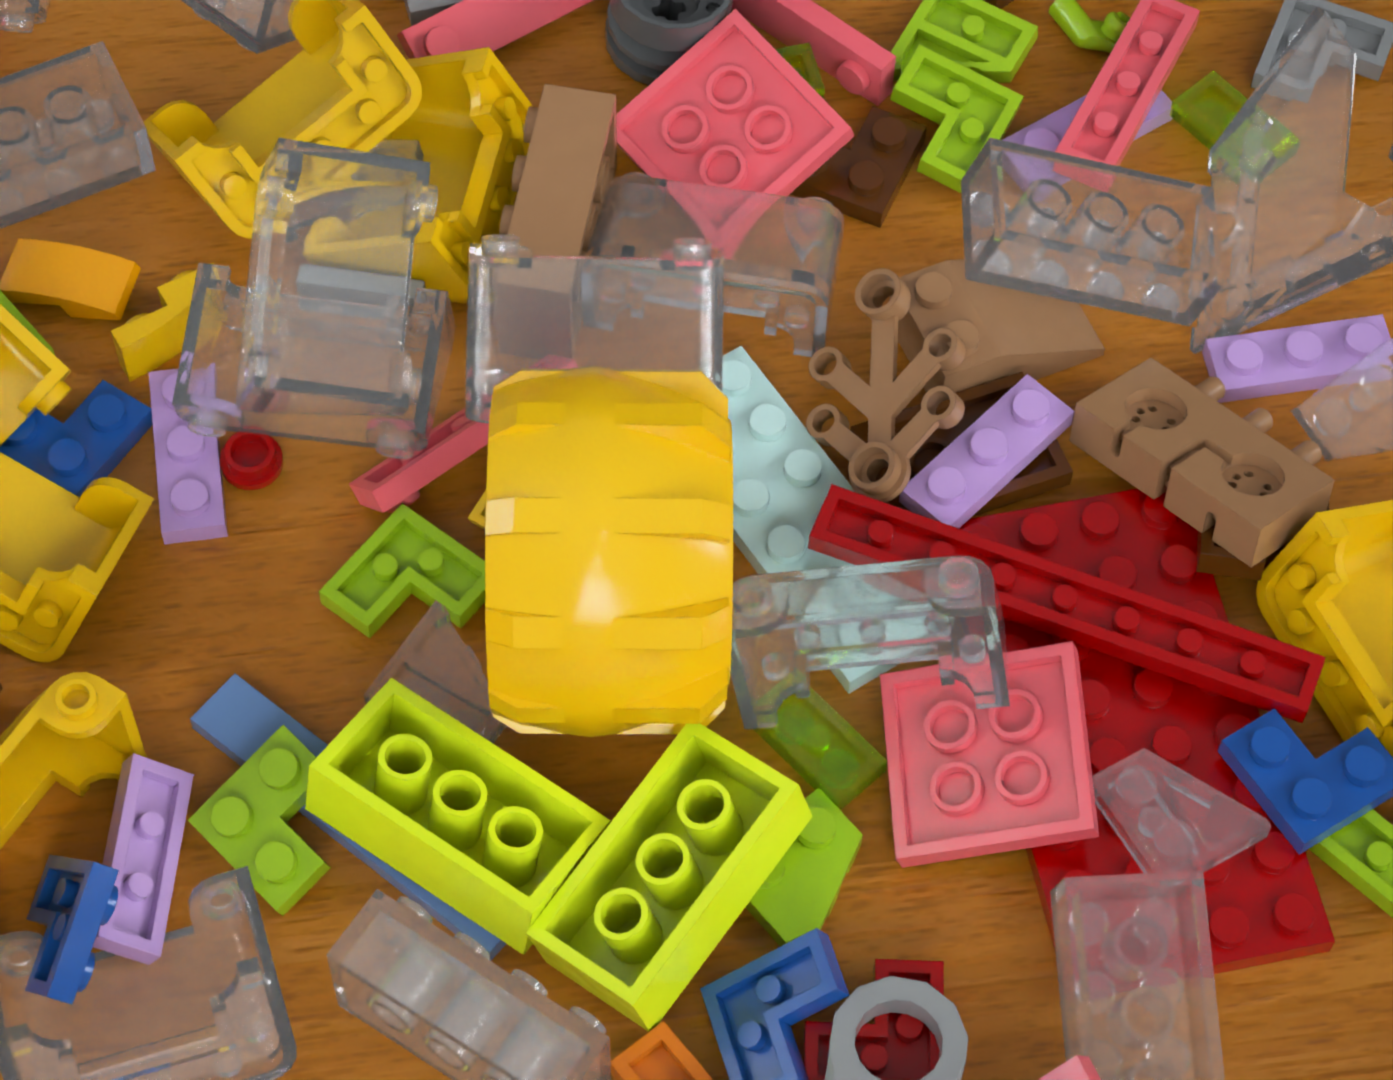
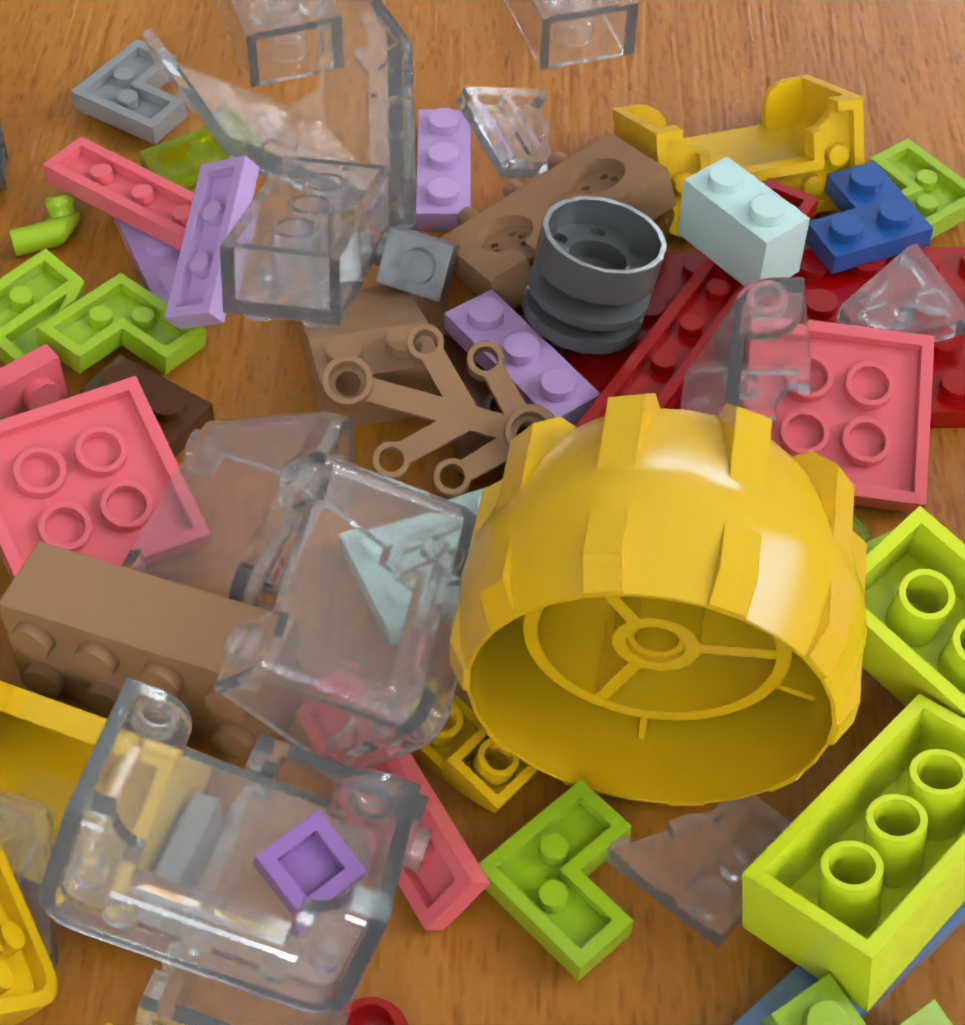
camera: 80 degrees left, 10 degrees down
(329, 348) = (309, 863): none -> medium lavender plate
(1097, 137) = (218, 202): none -> lavender plate
(1102, 459) = (593, 274): none -> dark grey wheel
(1107, 341) = (415, 262): none -> flat silver bracket
(1194, 614) = (741, 223): none -> light aqua brick

